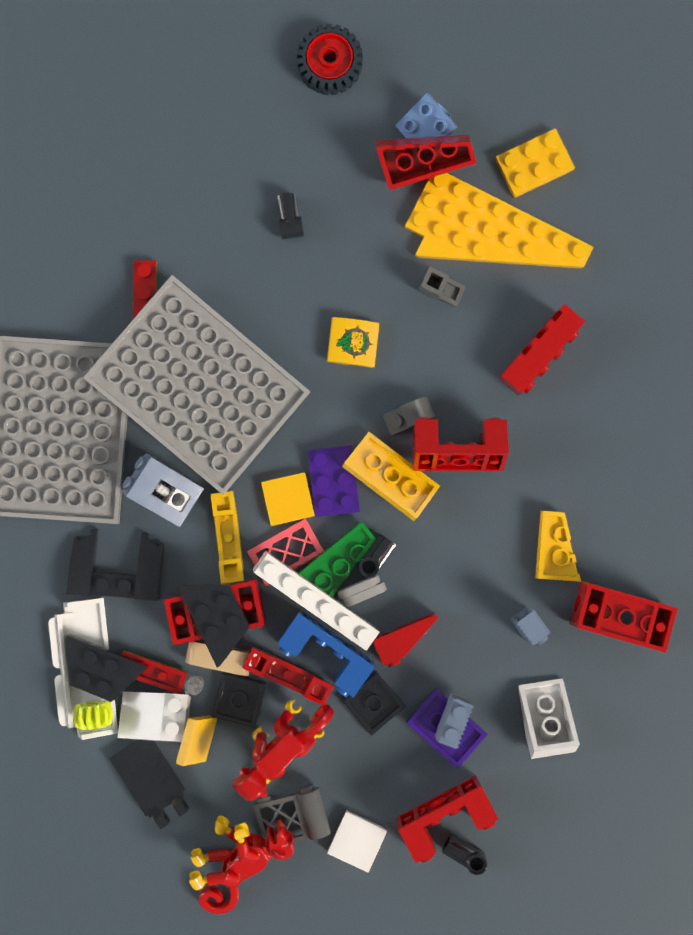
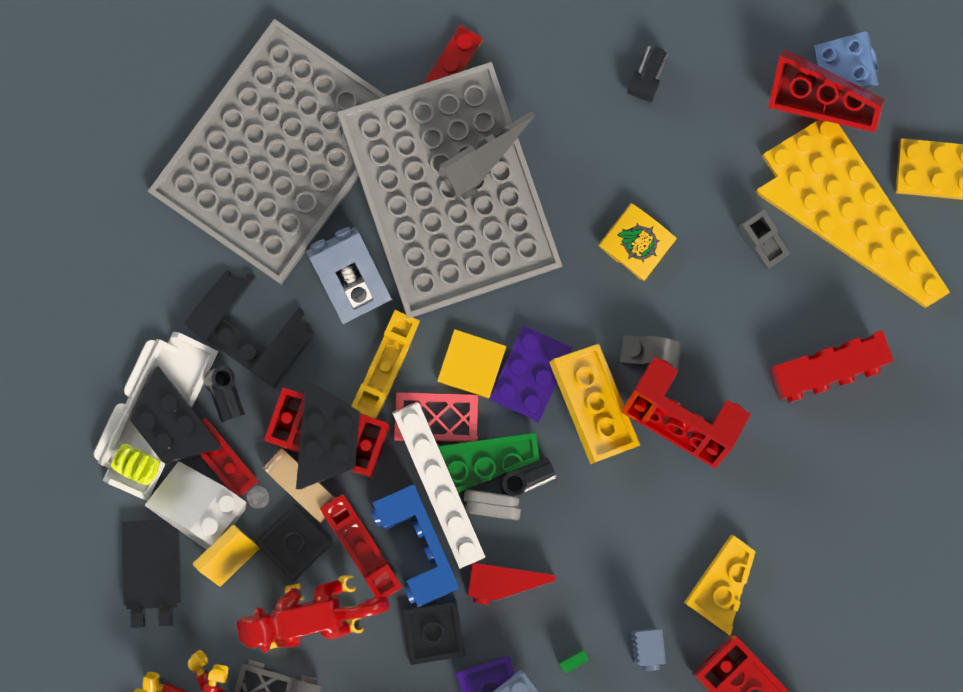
camera: 30 degrees right, 5 degrees down
(128, 628) = (226, 396): none -> black piece
(203, 360) = (472, 165): none -> dark grey wedge
(483, 665) = (573, 661): none -> green tile

